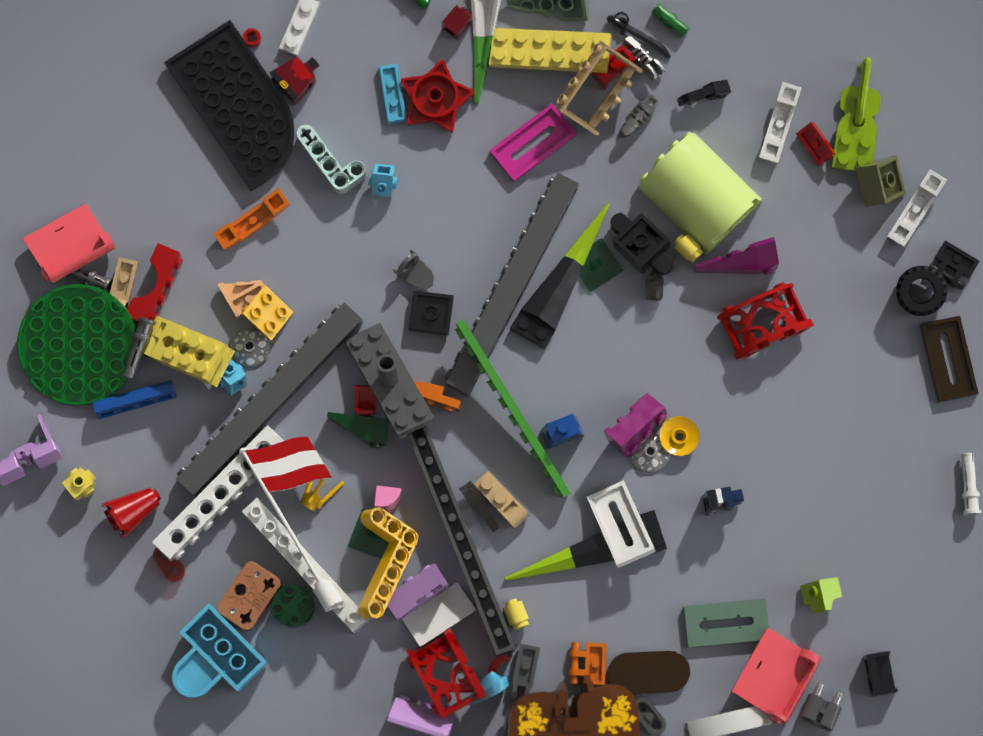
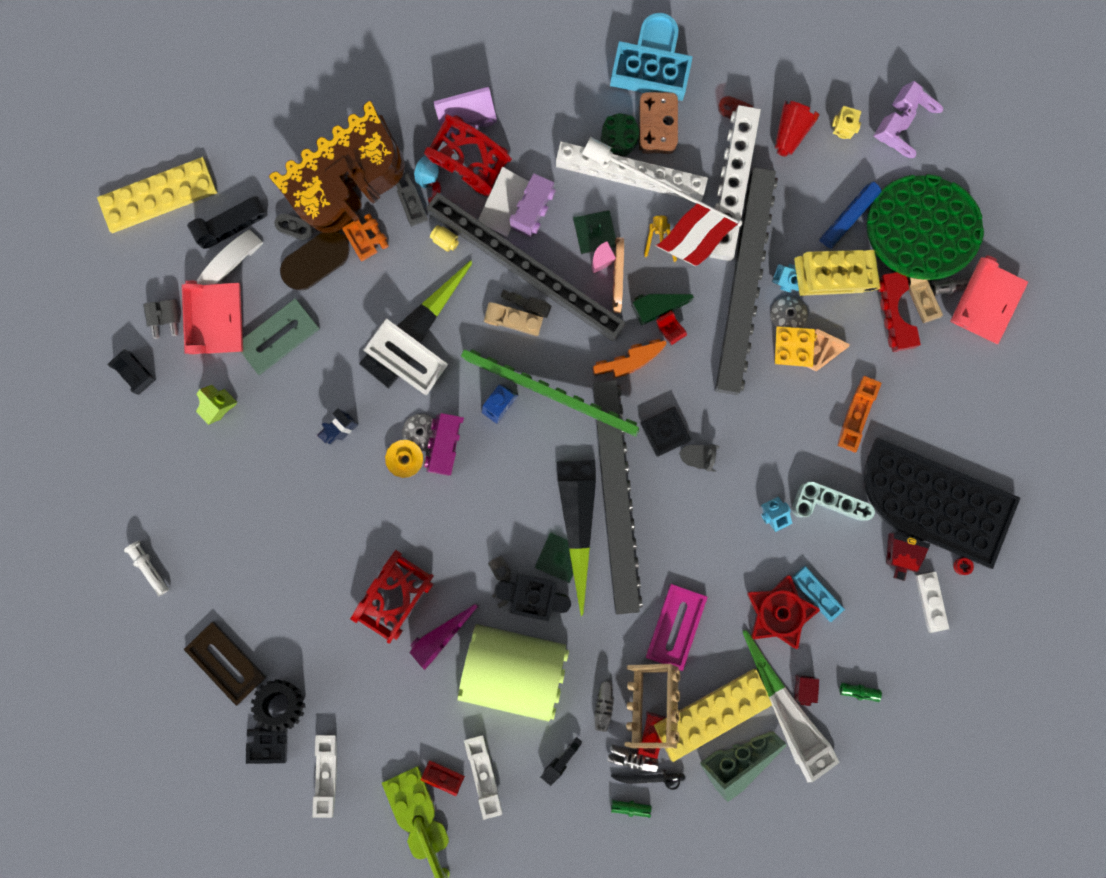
camera: 145 degrees right, 5 degrees up
(143, 338) = (880, 258): flat silver pin -> none
(381, 475) = (618, 275): none -> light nougat tile
(389, 380) = (650, 345): dark grey plate -> none
(395, 566) = (568, 210): yellow beam -> none
(688, 248) = (493, 619): light yellow brick -> none
(880, 181) = (368, 779): olive slope -> none

